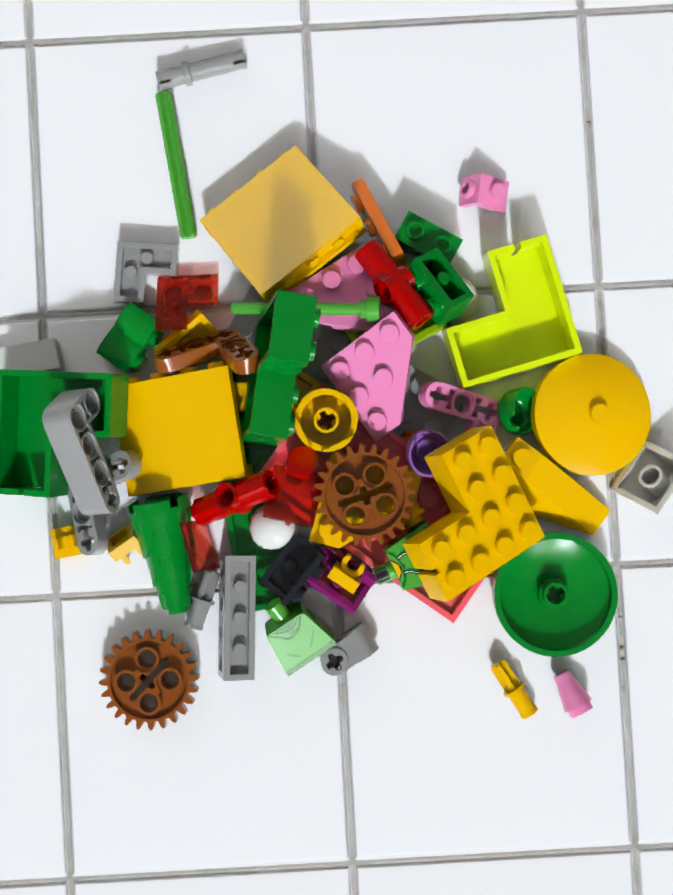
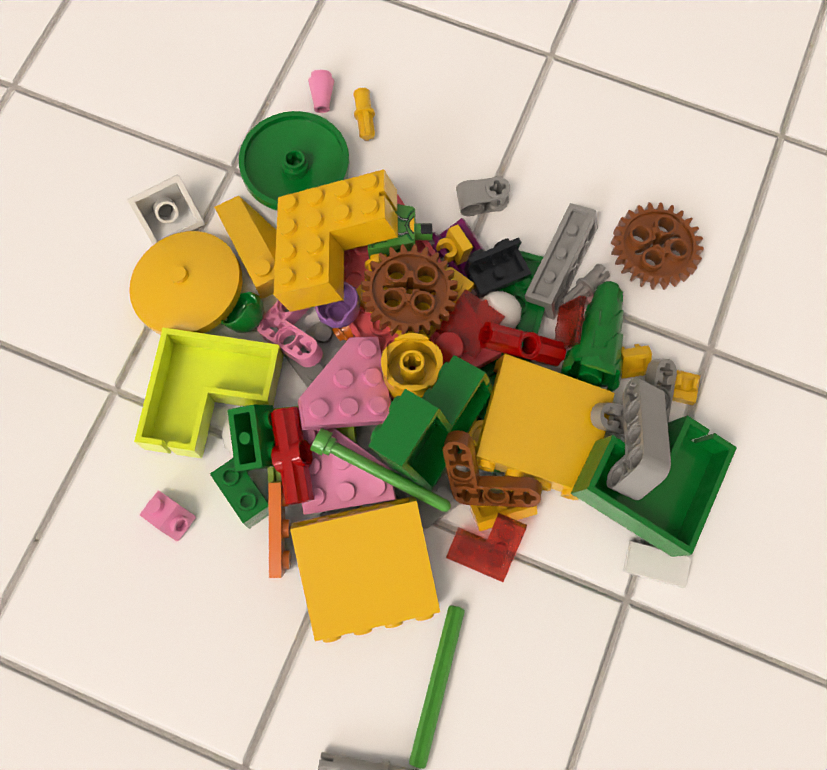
camera: 155 degrees left, 15 degrees down
(130, 339) = (553, 534): green brick -> none
(138, 261) = (515, 605): light grey plate -> none
(296, 634) = (519, 218): torso -> none

